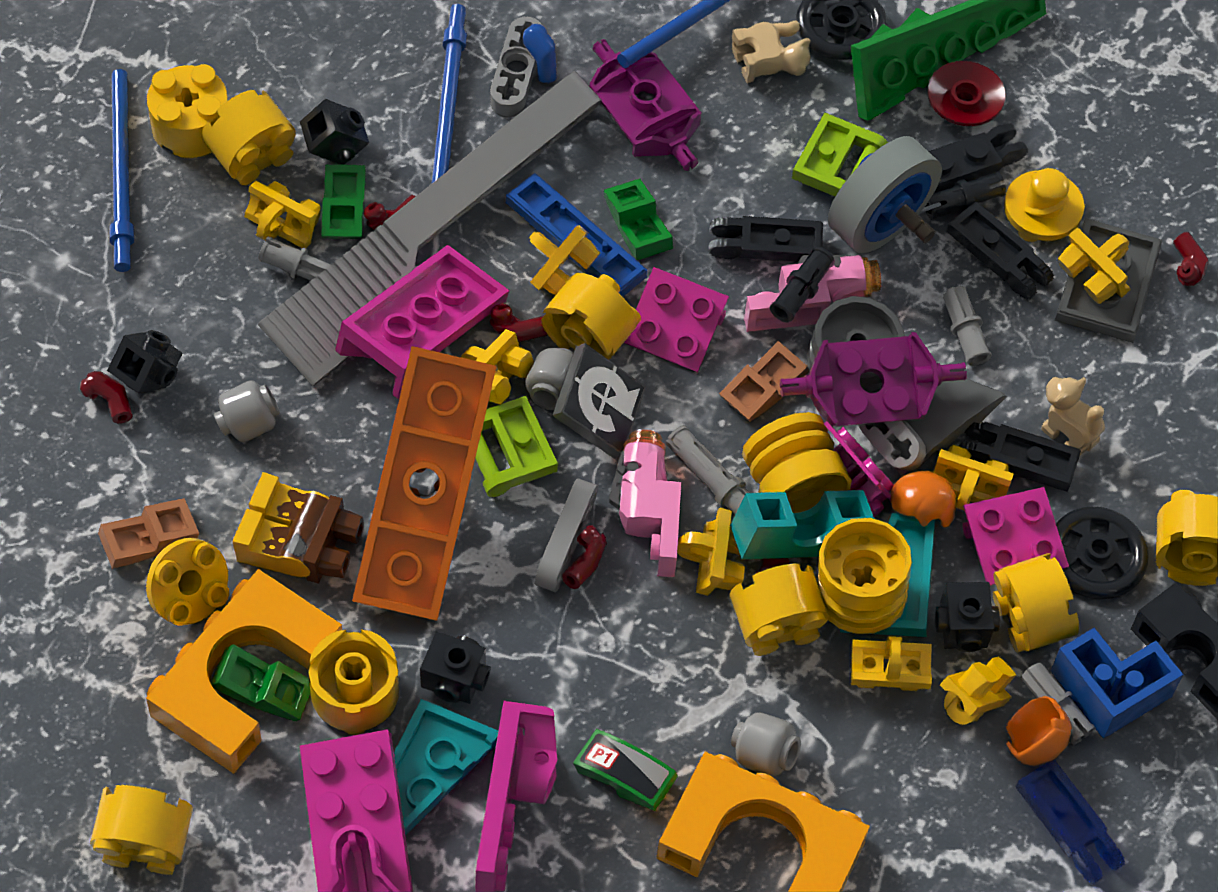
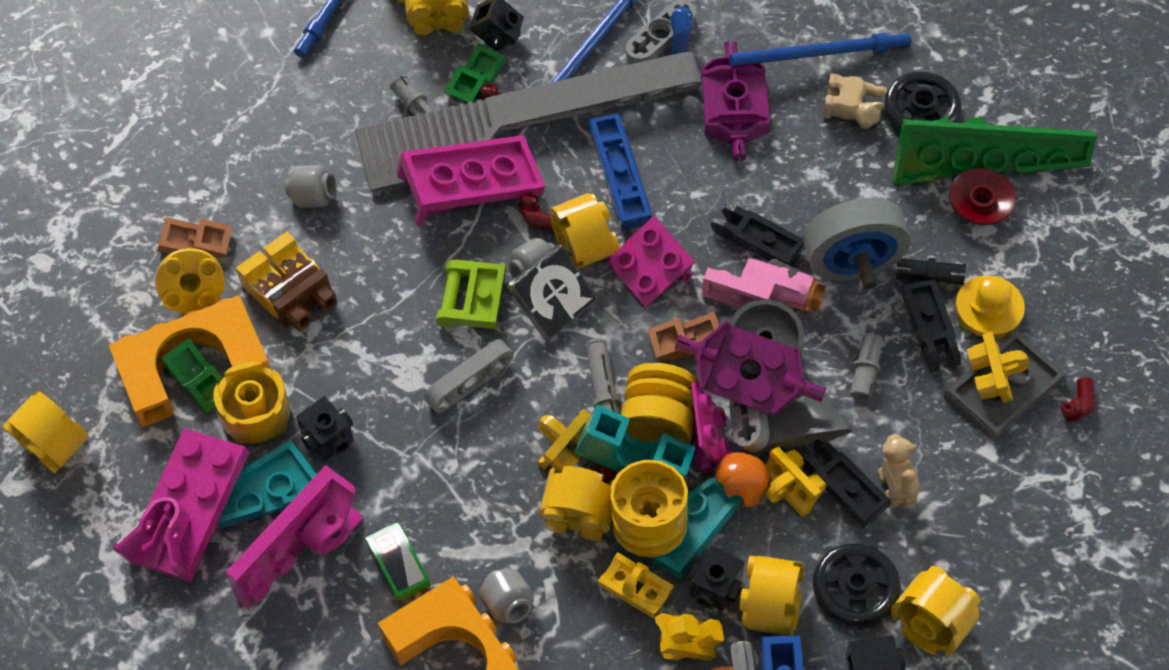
camera: 35 degrees right, 0 degrees up
(102, 385) = (236, 132): dark red arm -> none
(145, 361) = (264, 121): black brick -> none
(271, 202) = (414, 64): yellow hips -> none
(412, 533) = (379, 287): orange plate -> none
(509, 361) = (484, 242): yellow hips -> none
(575, 245) = (605, 174): yellow hips -> none
(589, 560) = (473, 402): dark red arm -> none
(637, 219) = (674, 179): green slope -> none
(646, 499) = (542, 379): bright pink plate -> none
(802, 284) = (770, 269): black pin -> none
(829, 150) = (851, 185): lime plate -> none
(977, 156) = (956, 246): black hinge -> none
(1013, 530) = (798, 534): dark pink hinge -> none

